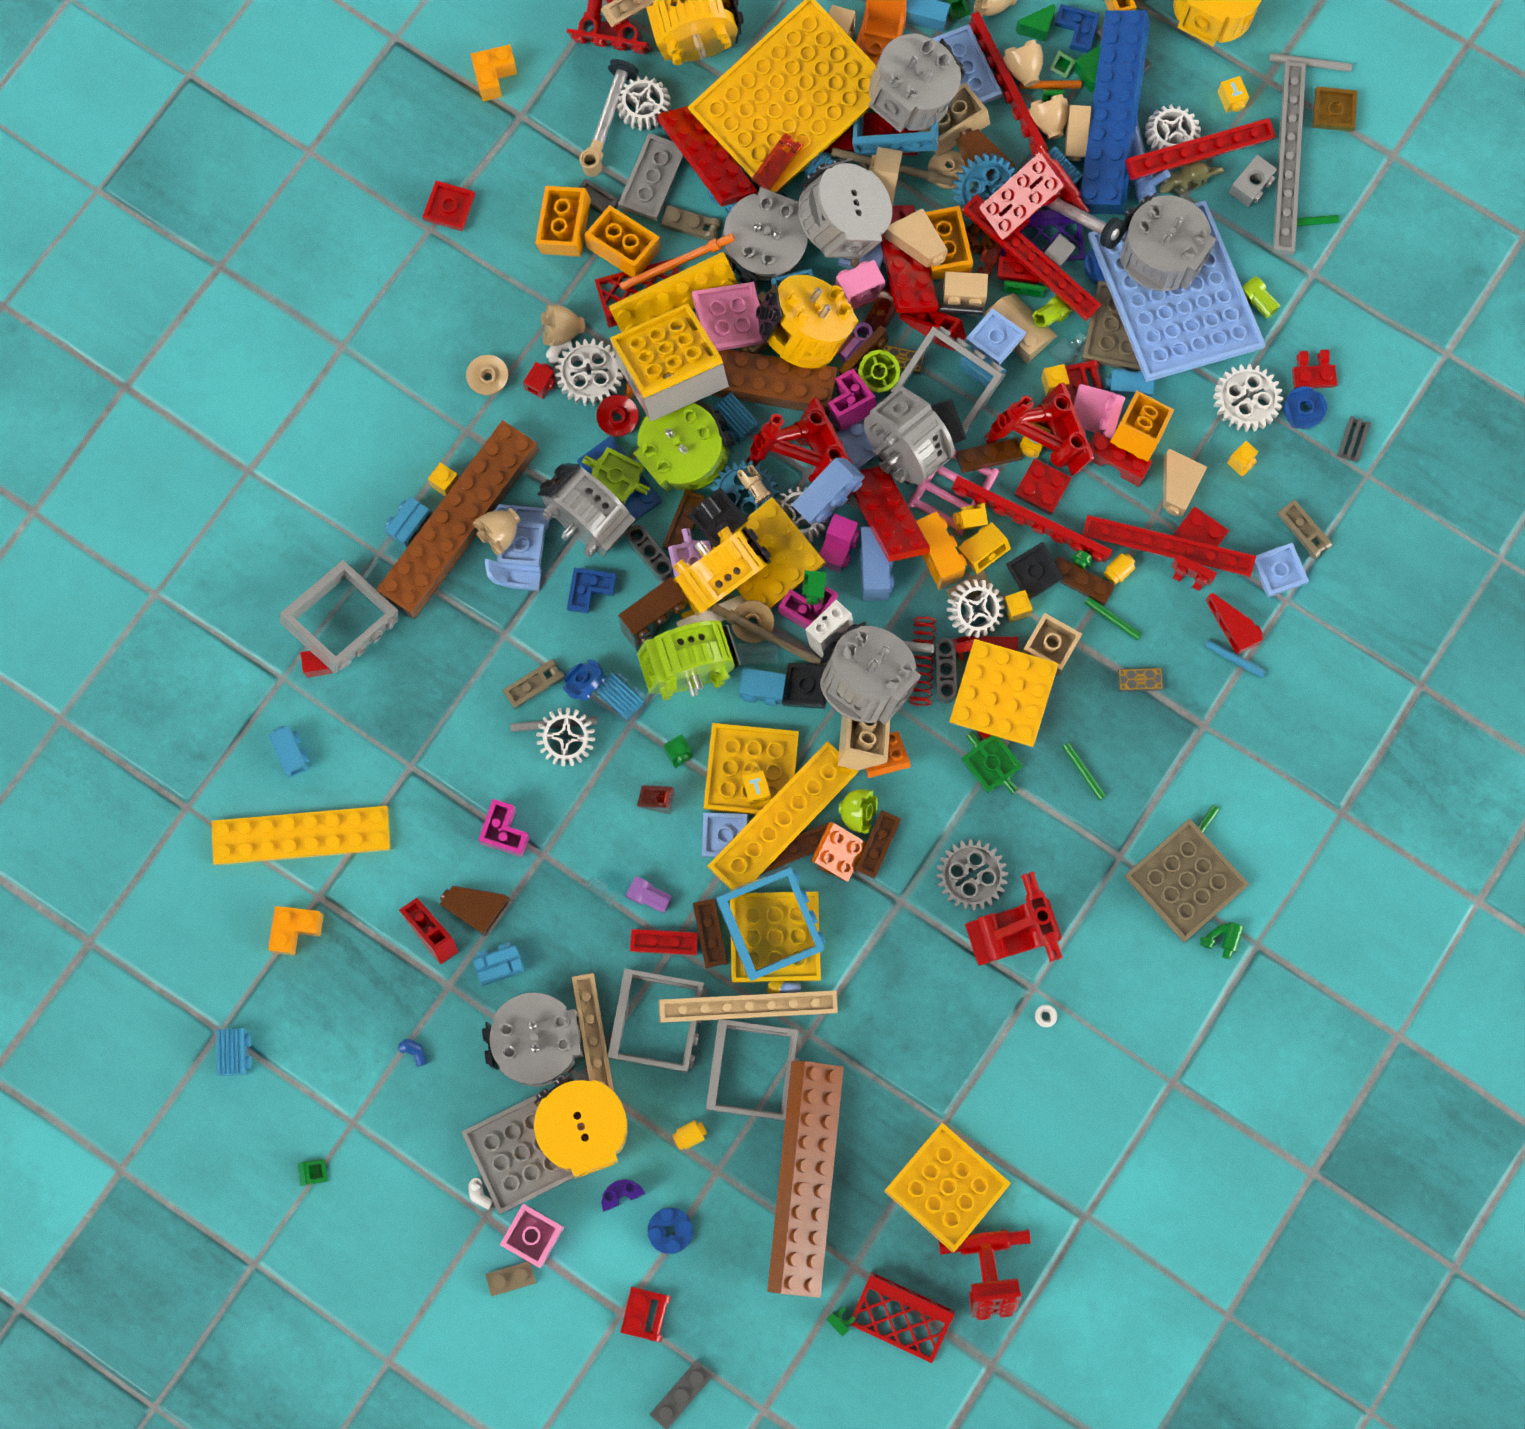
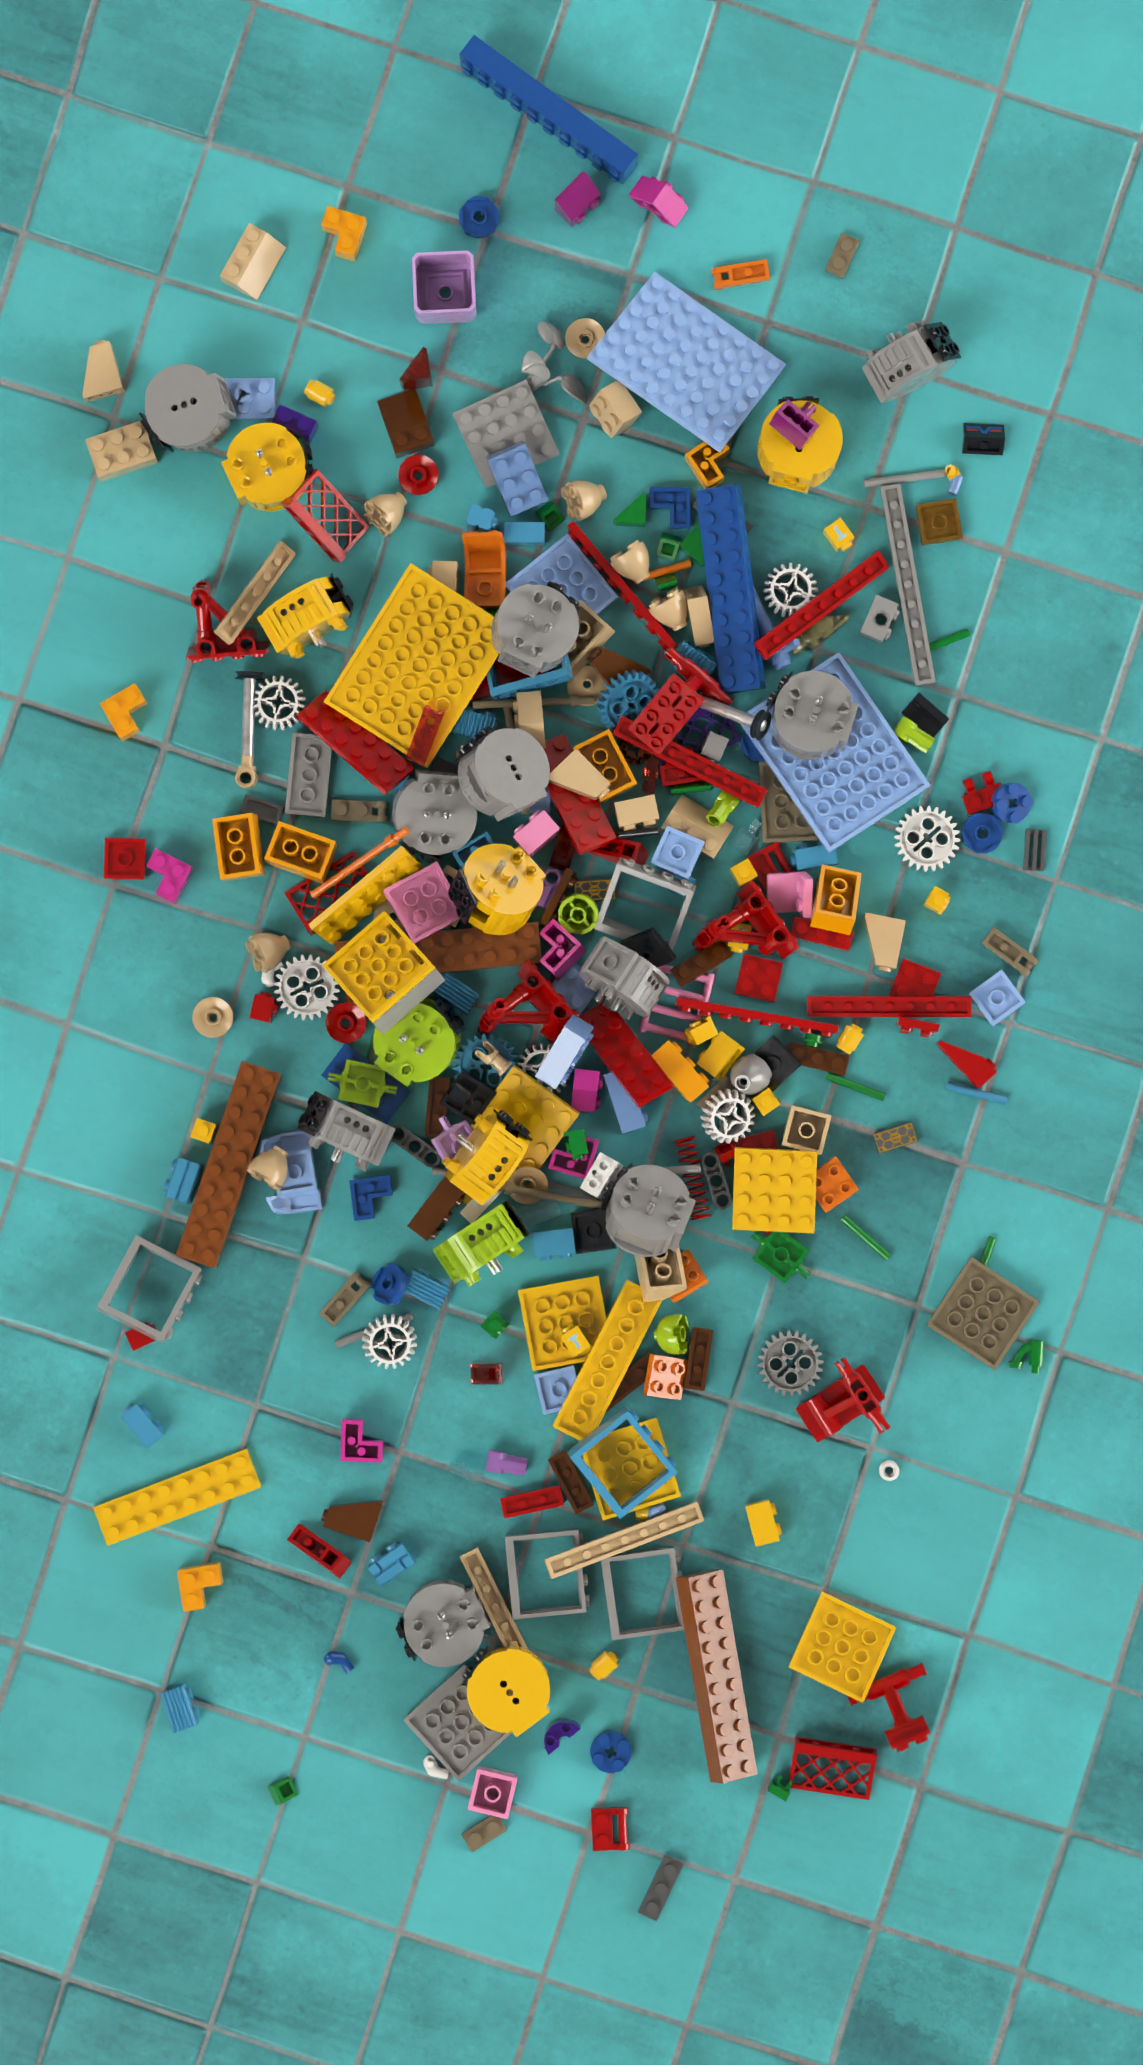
camera: 15 degrees left, 10 degrees up
(491, 231) = (175, 875): none -> dark pink brick
(898, 1030) = (762, 1522): none -> yellow brick
(1016, 578) = (754, 1070): none -> light grey piece
(1065, 706) = (833, 1184): none -> orange plate
(1278, 281) = (925, 715): none -> black panel
(1331, 383) = (1022, 802): none -> blue plate
(1360, 74) = (955, 478): none -> arm
(1397, 47) = (983, 439): none -> black panel

